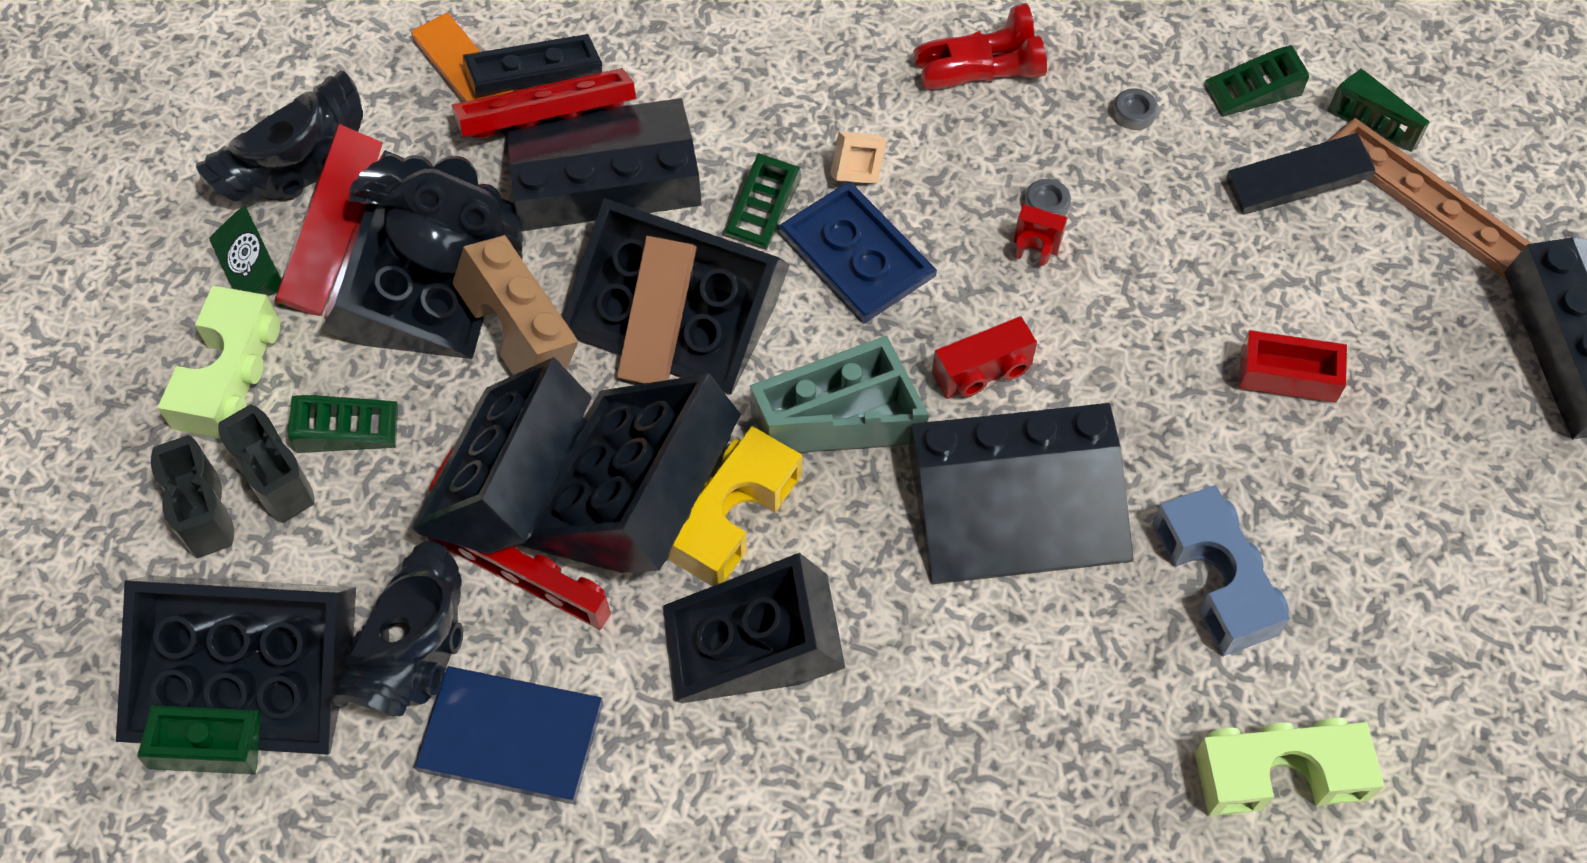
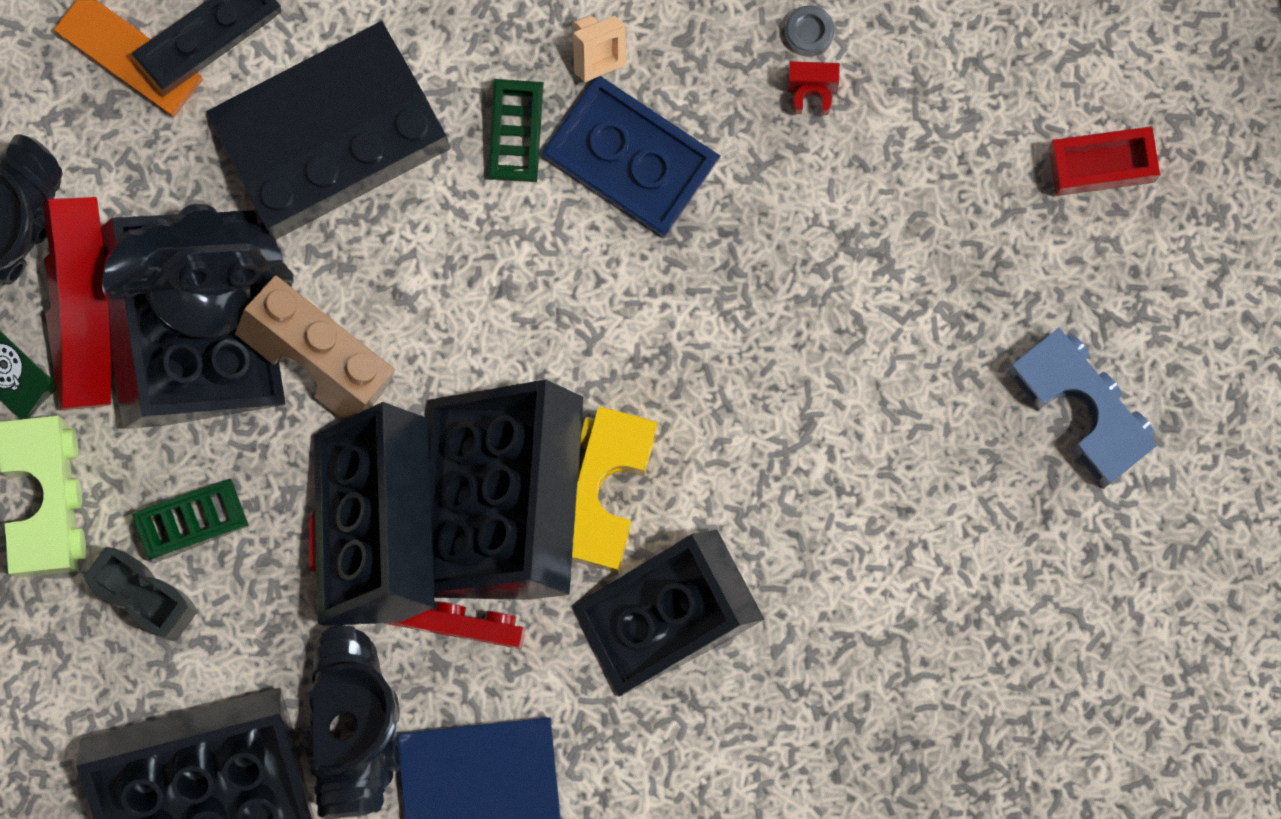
camera: 15 degrees left, 20 degrees up
(192, 496) = (77, 638): pearl dark grey brick -> none
(558, 99) = (240, 81): red plate -> none
(656, 310) = (458, 306): nougat tile -> none
(725, 302) = (463, 274): black slope -> none
(840, 401) = (675, 348): sand green wedge -> none
(984, 357) = (811, 237): red piece -> none
(1021, 493) = (875, 387): black slope -> none
(1331, 755) = (1225, 564): yellowish green arch -> none

